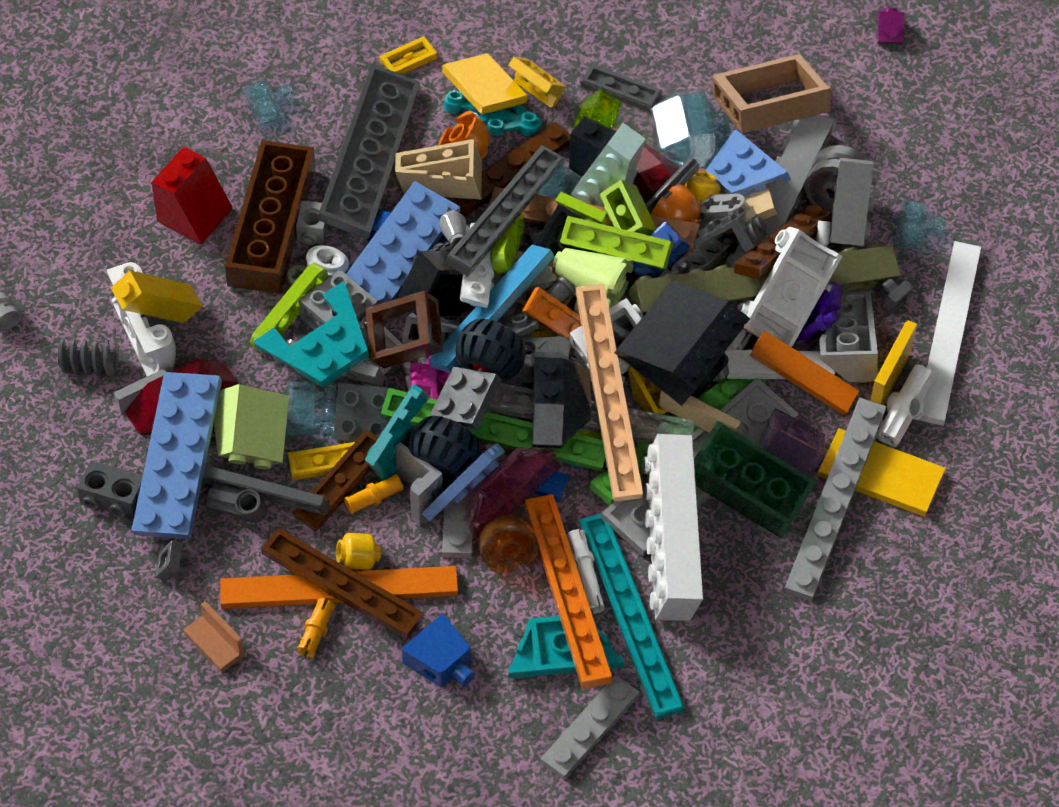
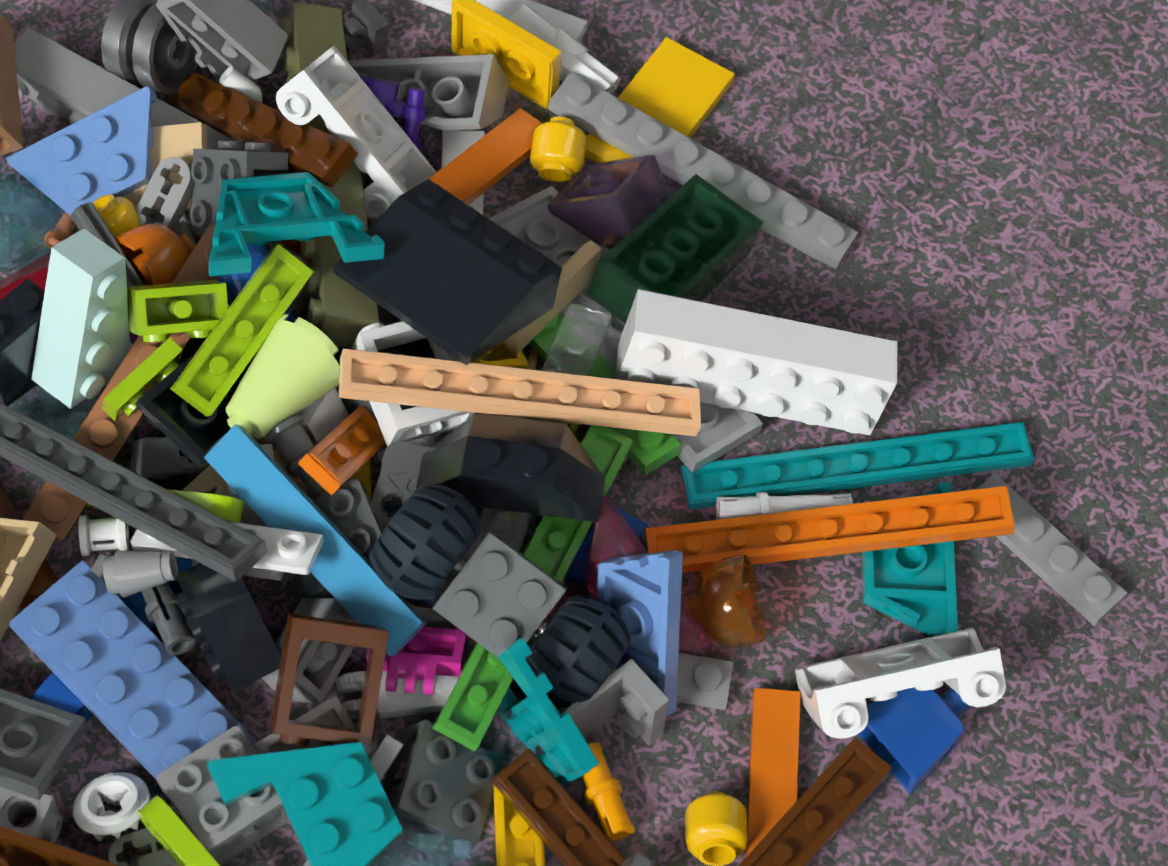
camera: 85 degrees left, 5 degrees up
(480, 657) = (838, 687): none -> white piece
(699, 238) = (282, 209): none -> teal wing
(826, 412) = (558, 149): none -> yellow head

